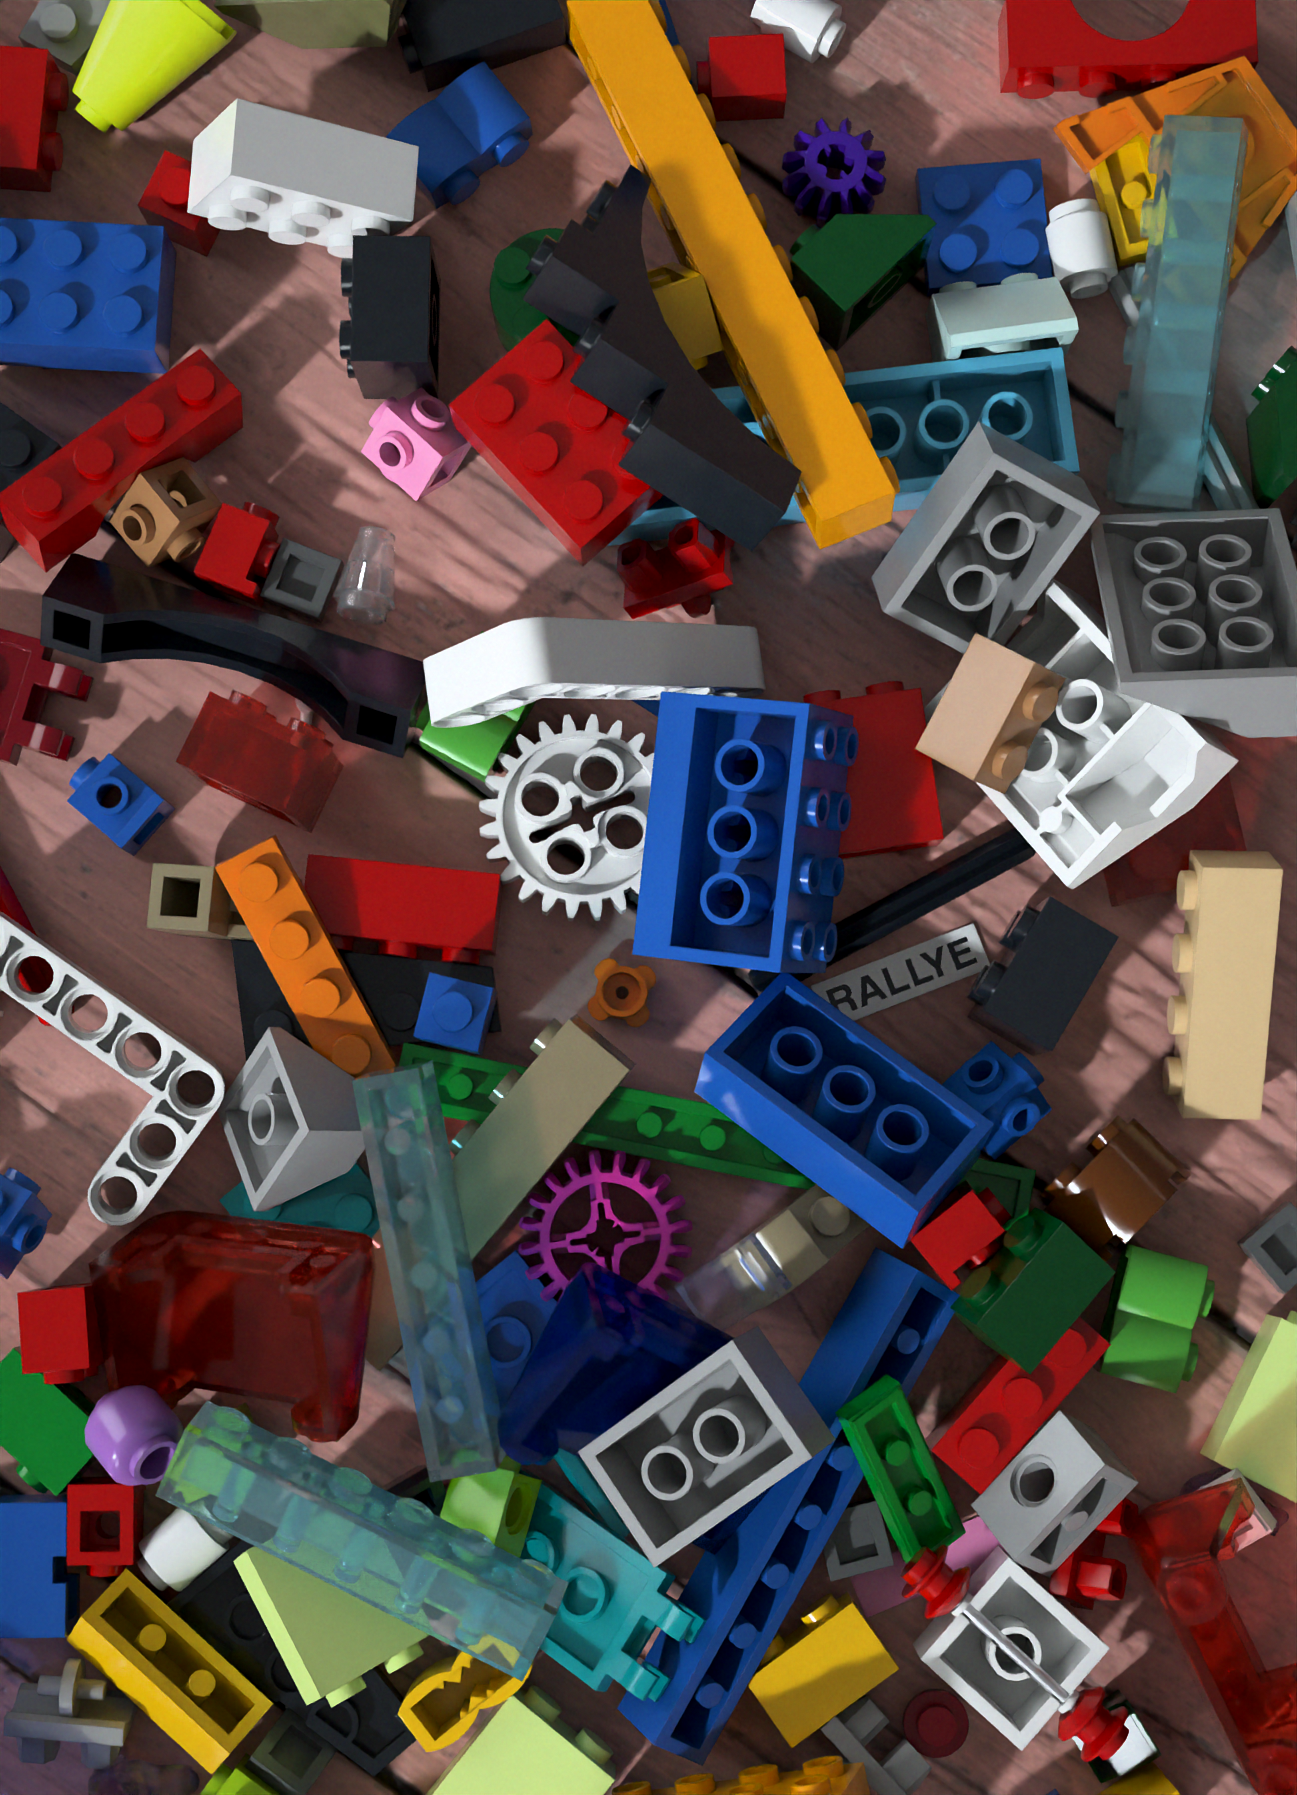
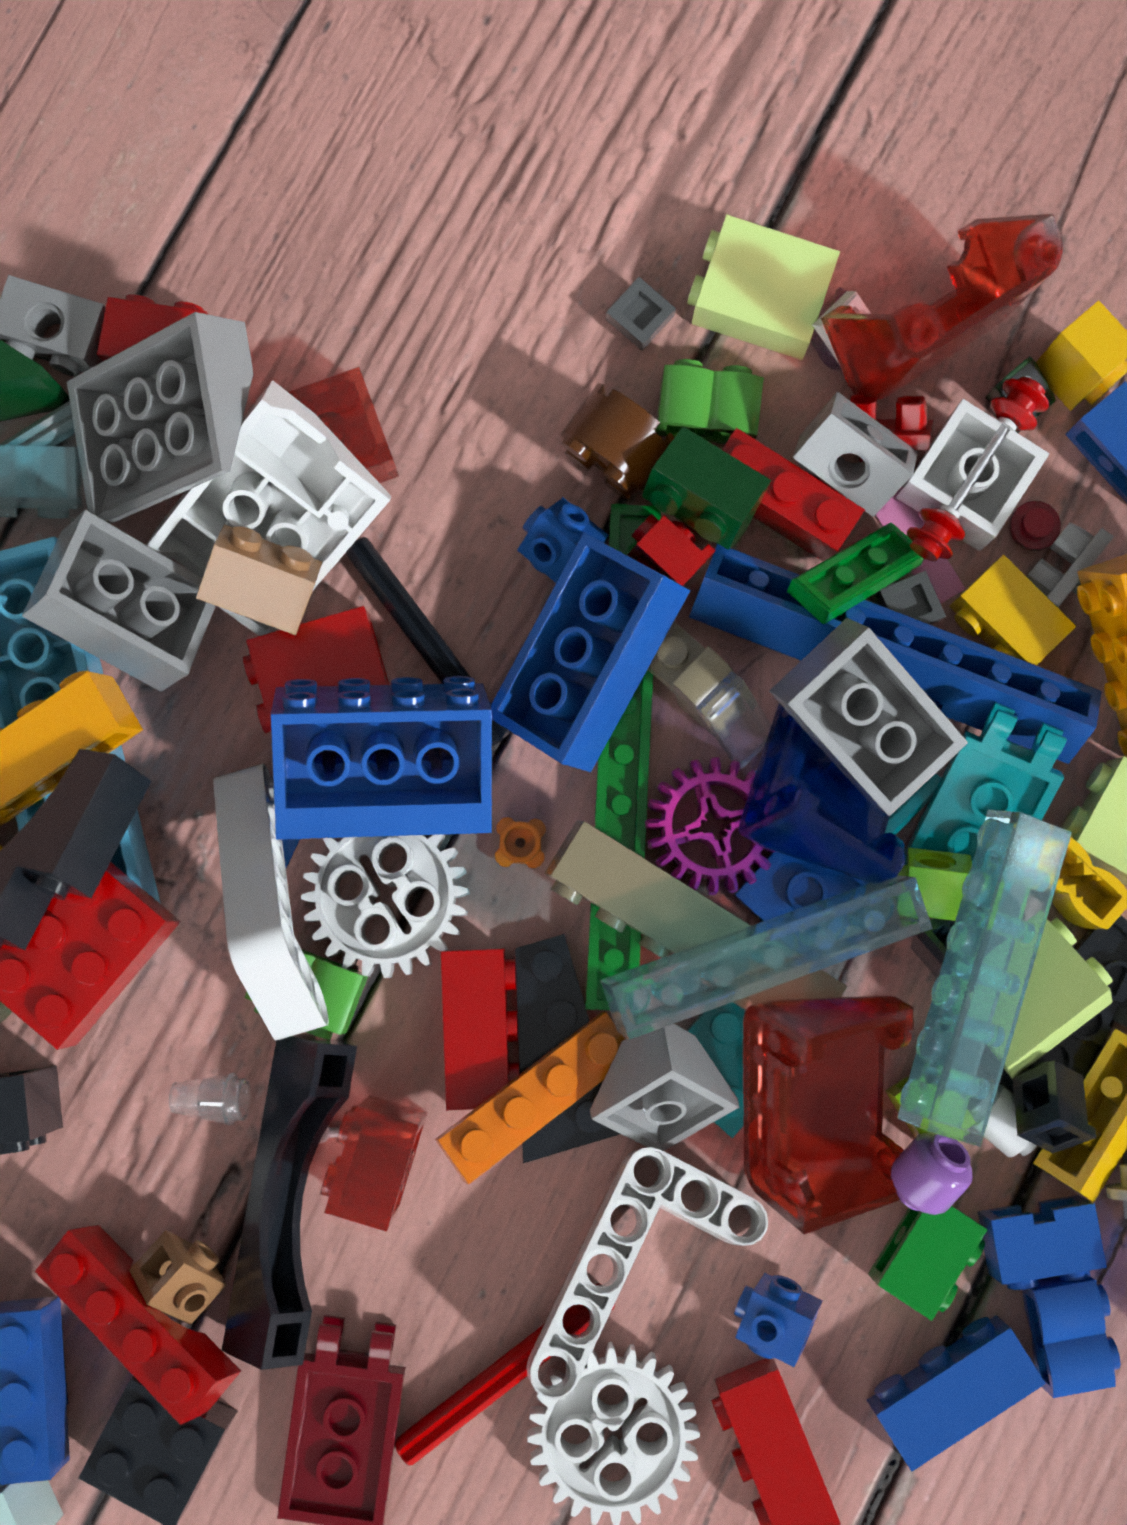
camera: 100 degrees left, 0 degrees up
(60, 1333) = (860, 1249): red brick -> none
(87, 1542) = (1015, 1198): red brick -> none
(136, 815) = (438, 1262): blue brick -> none
(190, 1600) = (1051, 1107): none -> black brick
(193, 903) = (499, 1198): dark tan brick -> none
(239, 552) = (204, 1208): red brick -> none
(302, 580) = (220, 1153): dark grey plate -> none
(415, 443) = (94, 1076): bright pink brick -> none
(455, 1013) = (558, 969): blue brick -> none
(677, 575) = (177, 845): red hips -> none
(905, 974) = (473, 625): white sticker -> none
(1041, 975) = (461, 516): black brick -> none
(1223, 984) = (446, 376): tan brick -> none

